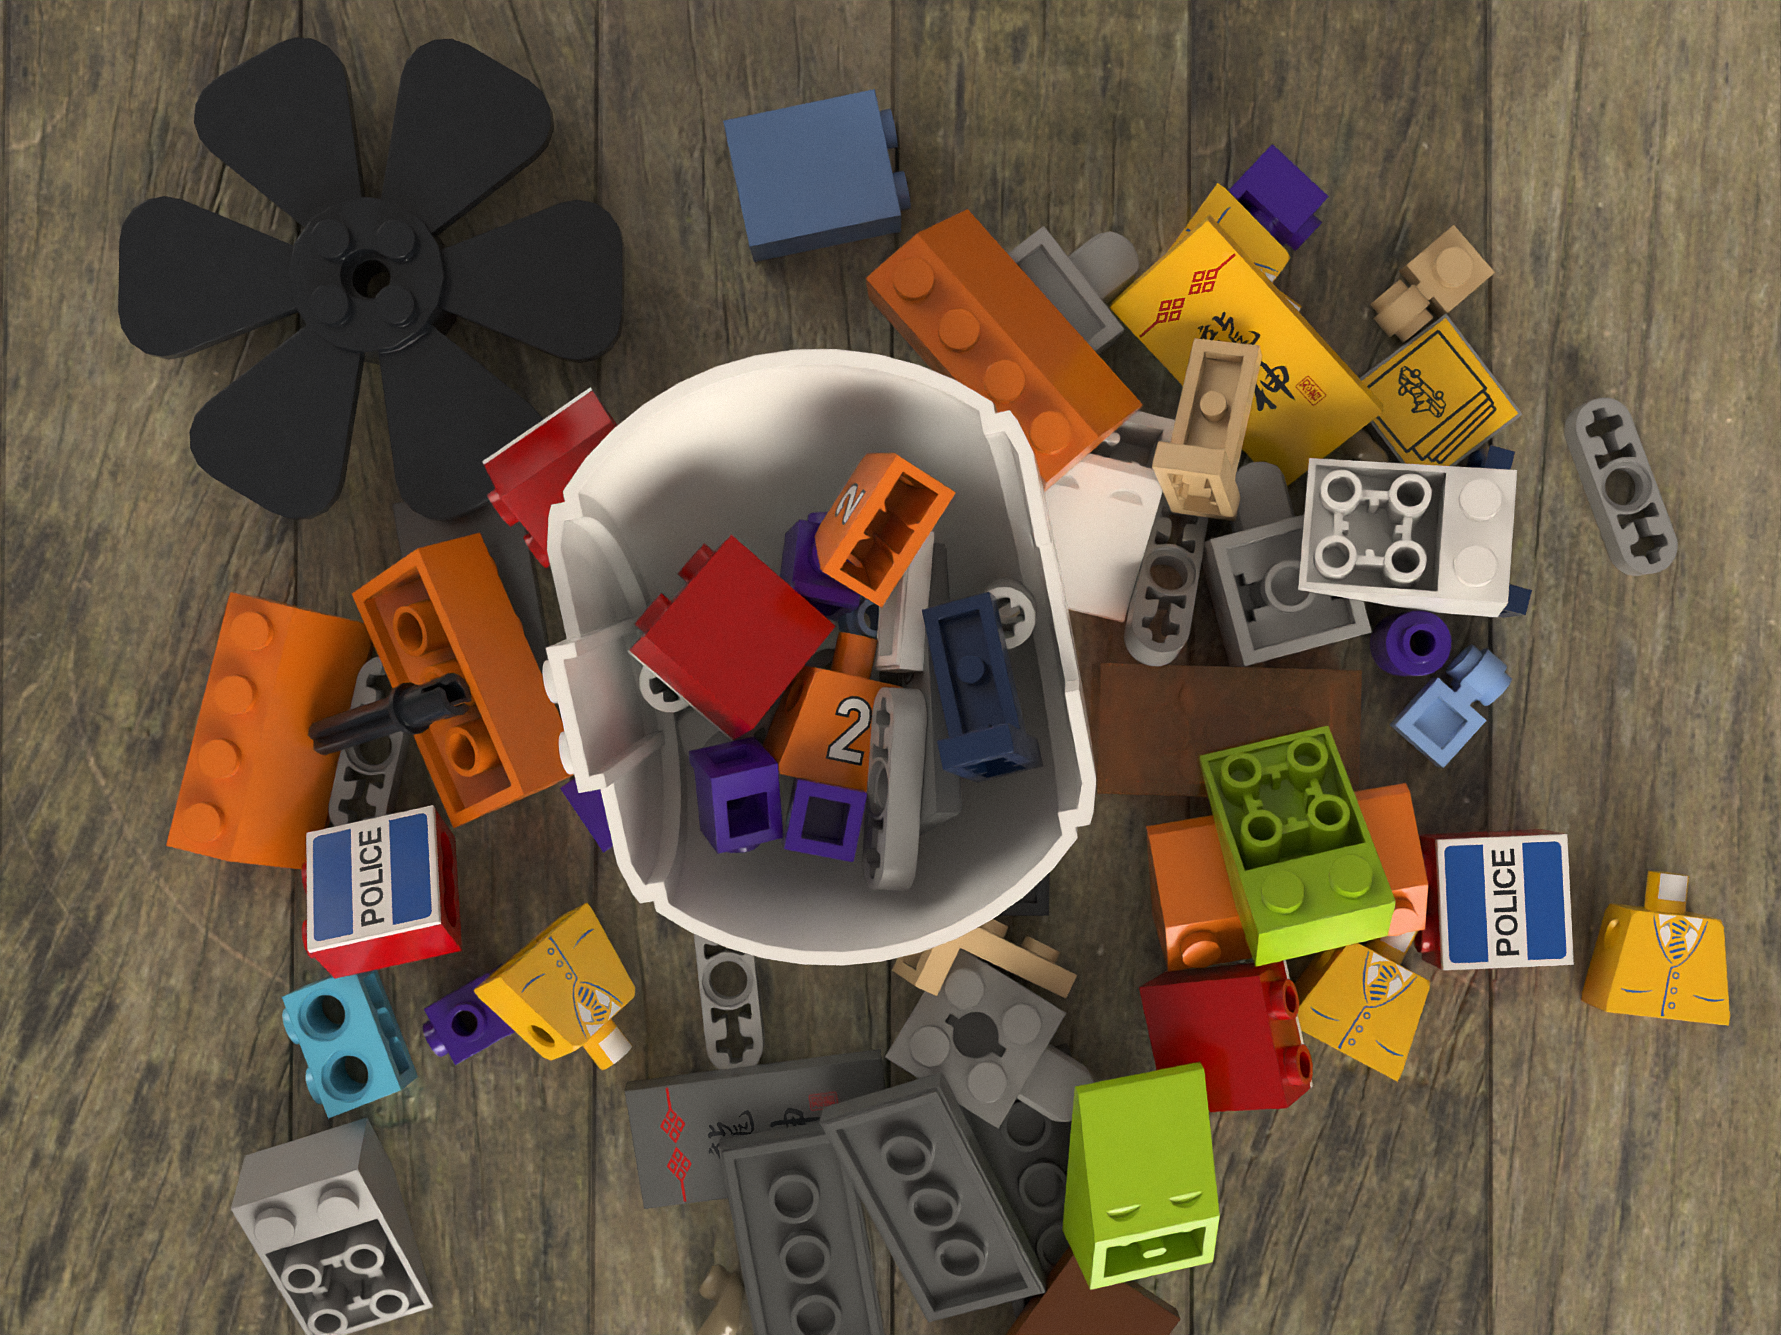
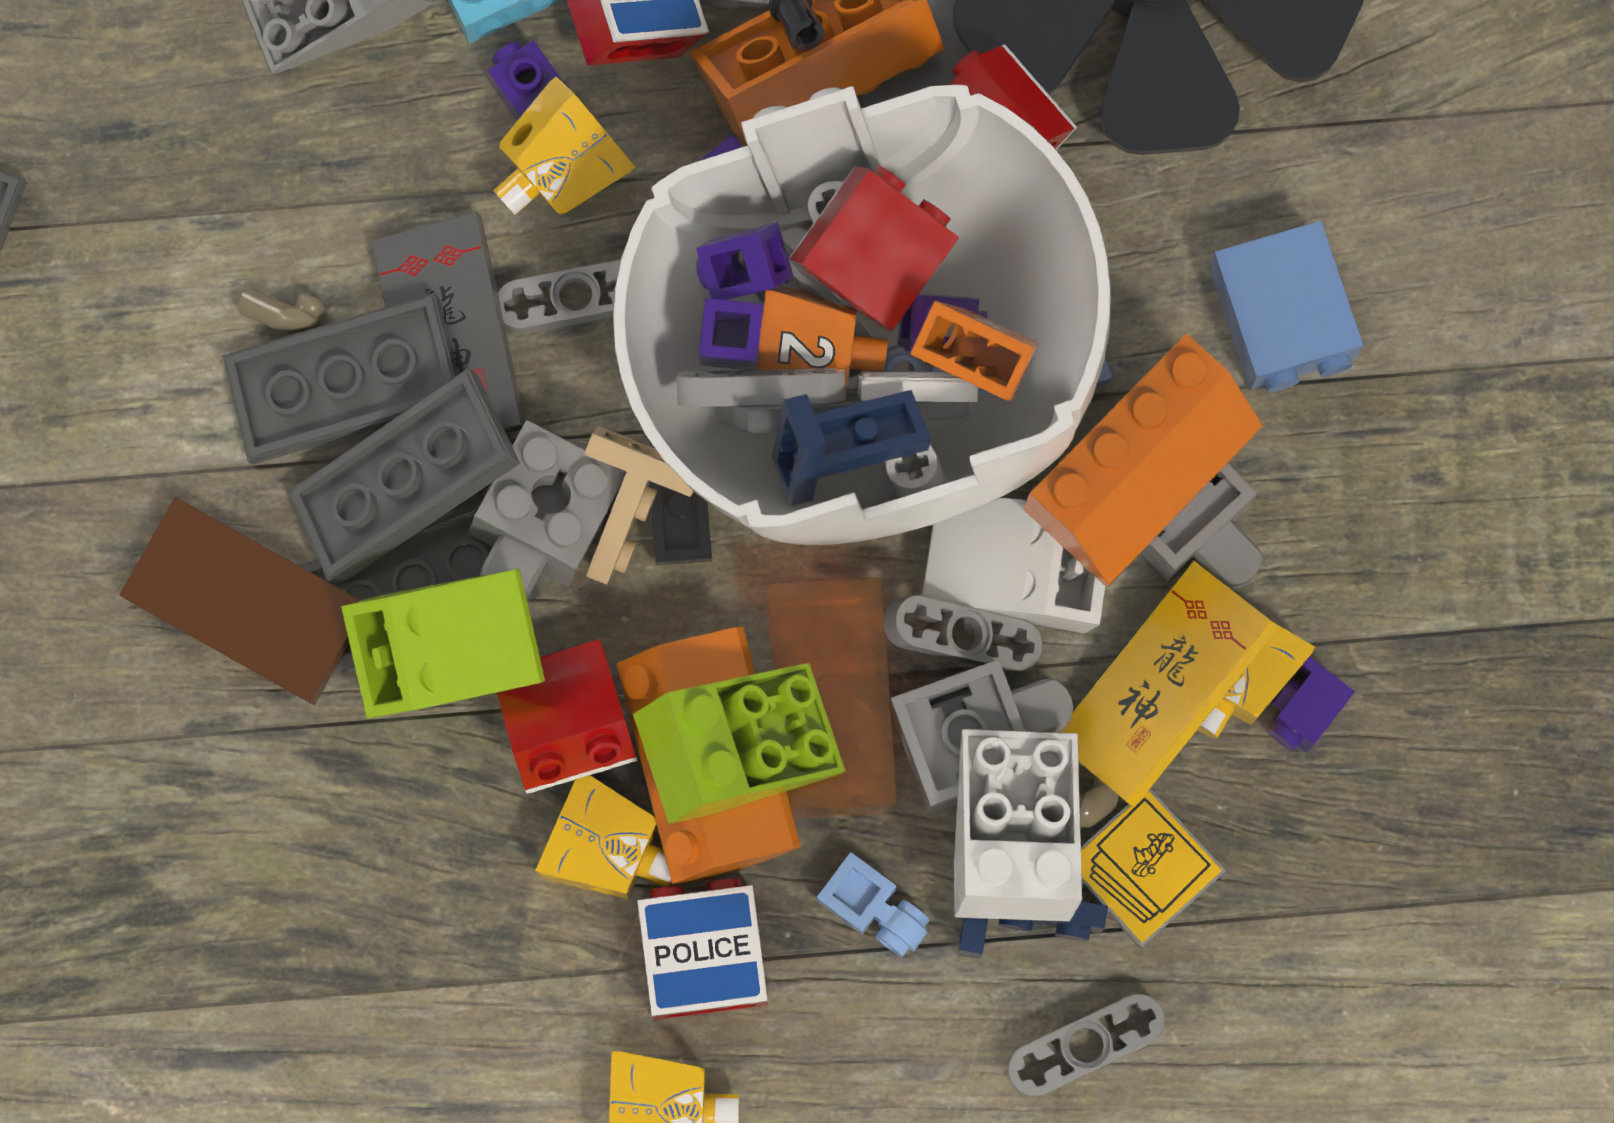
camera: 85 degrees right, 10 degrees down
(1209, 430) = (1091, 644): tan bracket -> none
(1392, 649) = (918, 872): dark purple brick -> none
(1438, 279) = (1261, 869): tan plate -> none

